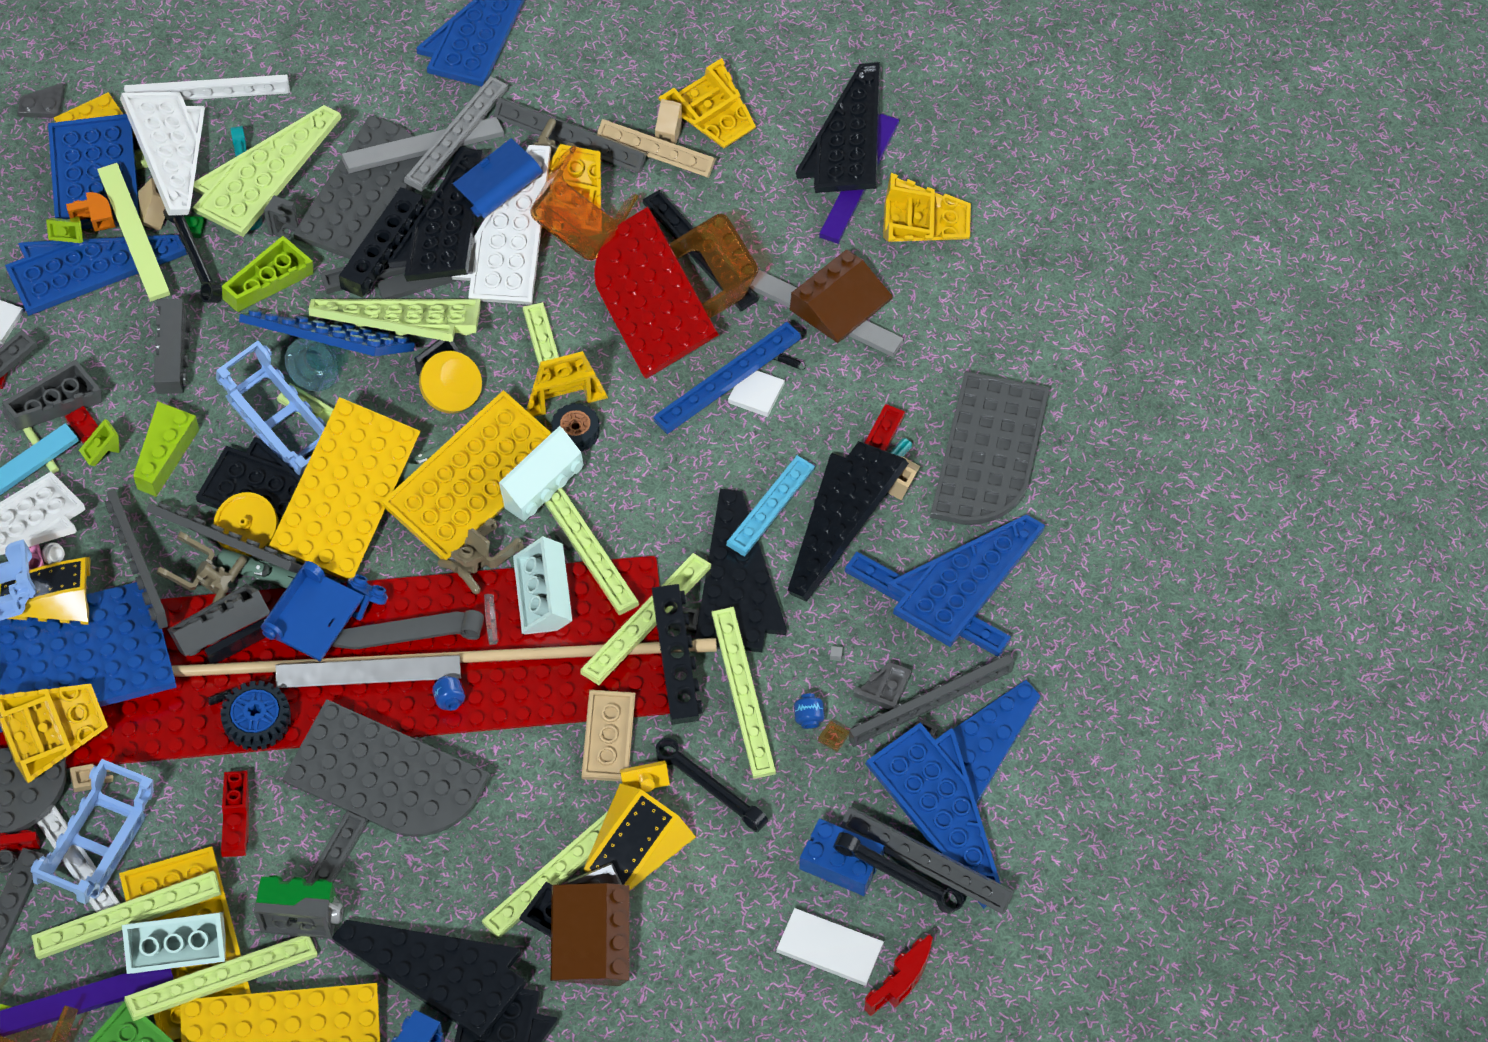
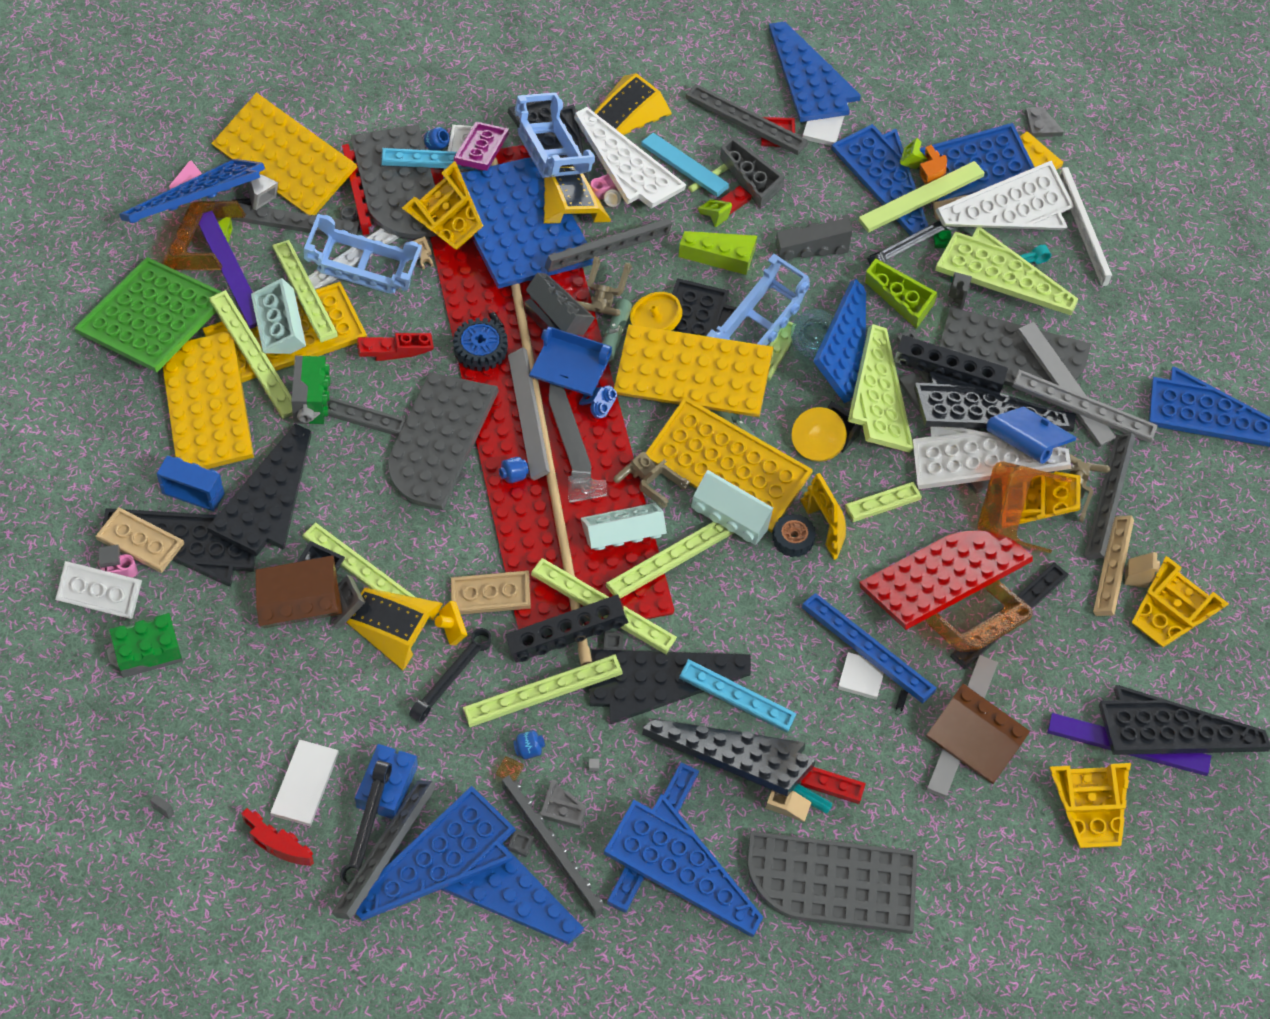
camera: 80 degrees right, 0 degrees up
(232, 539) = (635, 298): dark grey plate -> none

